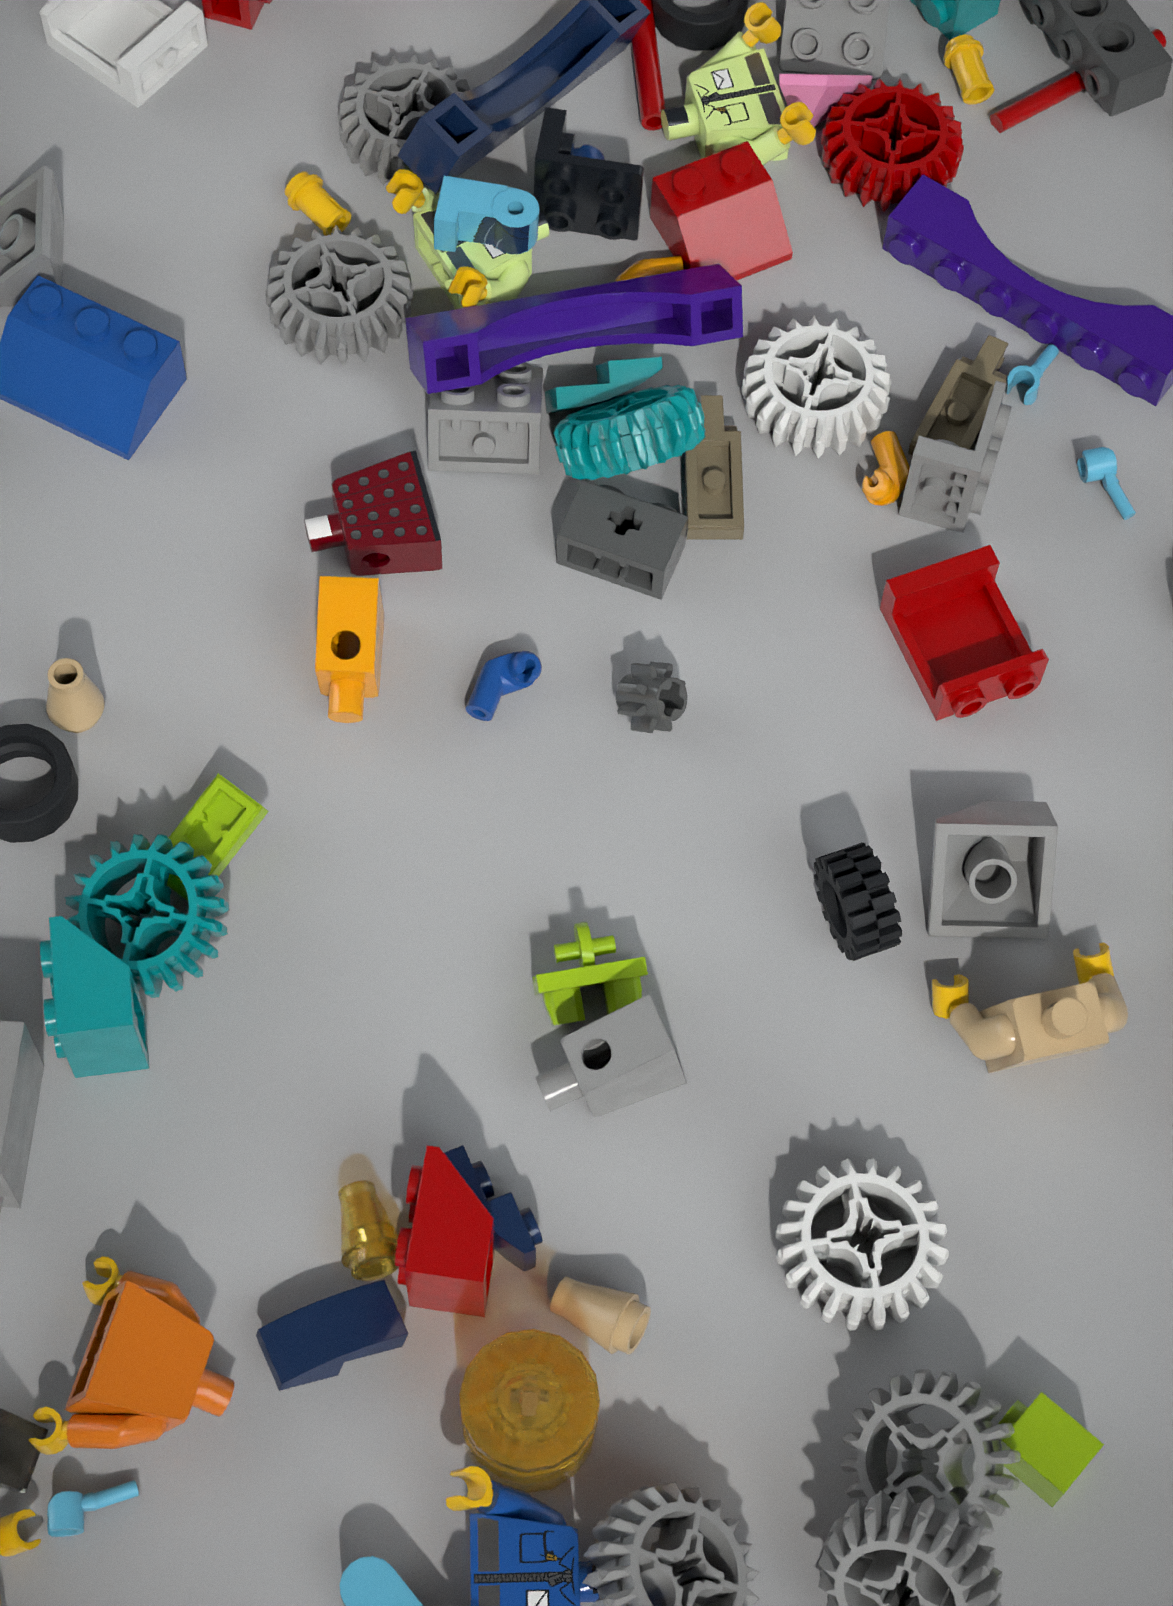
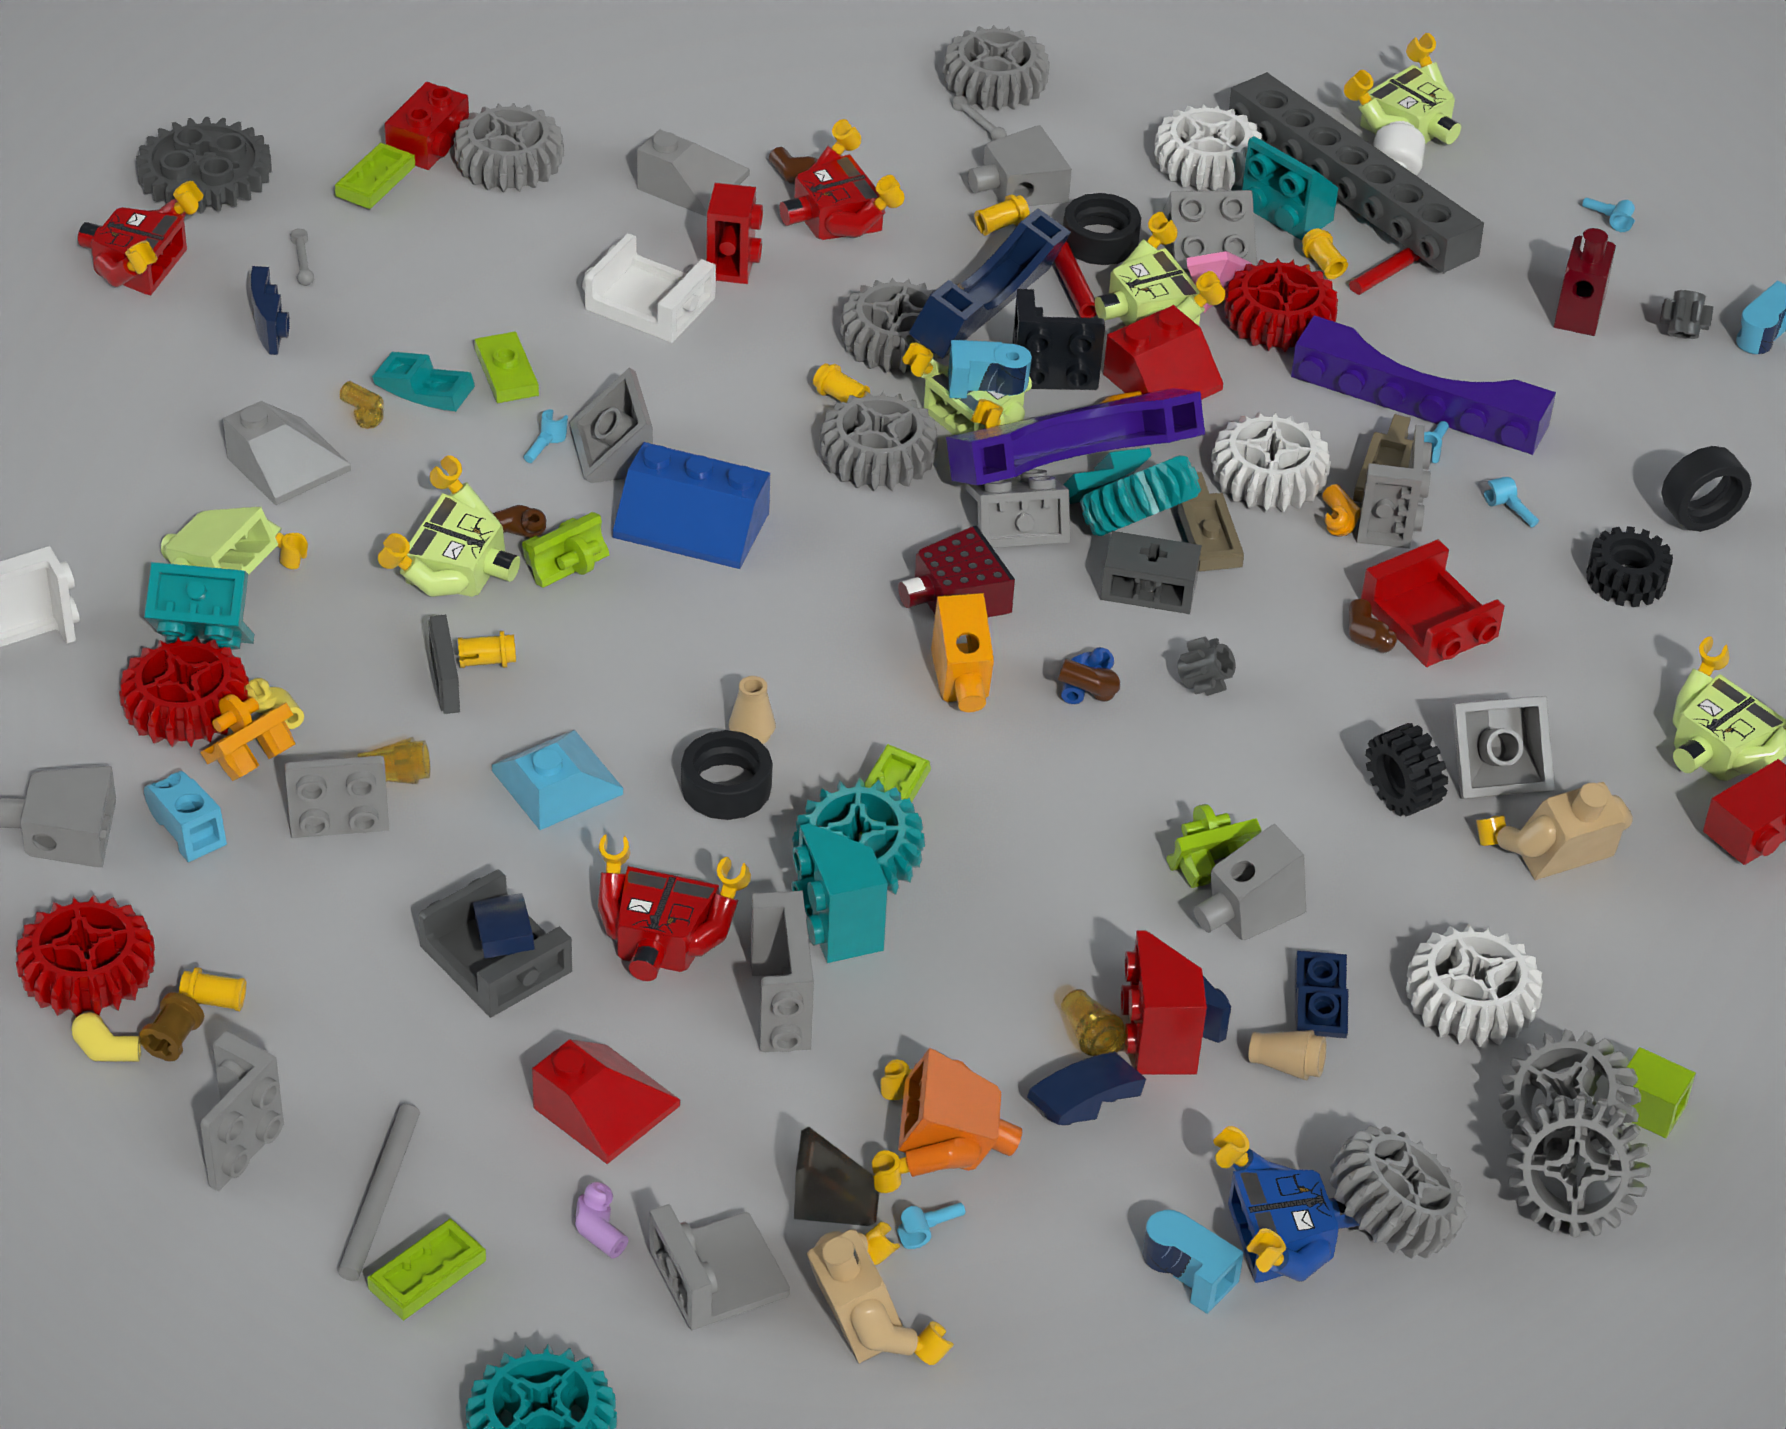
camera: 10 degrees left, 20 degrees down
(505, 701) = (1100, 682): none -> reddish brown arm
(535, 1449) = (1262, 1092): clear yellow wheel -> none
(667, 1226) = (1321, 993): none -> dark blue slope
(873, 661) = (1367, 630): none -> reddish brown arm

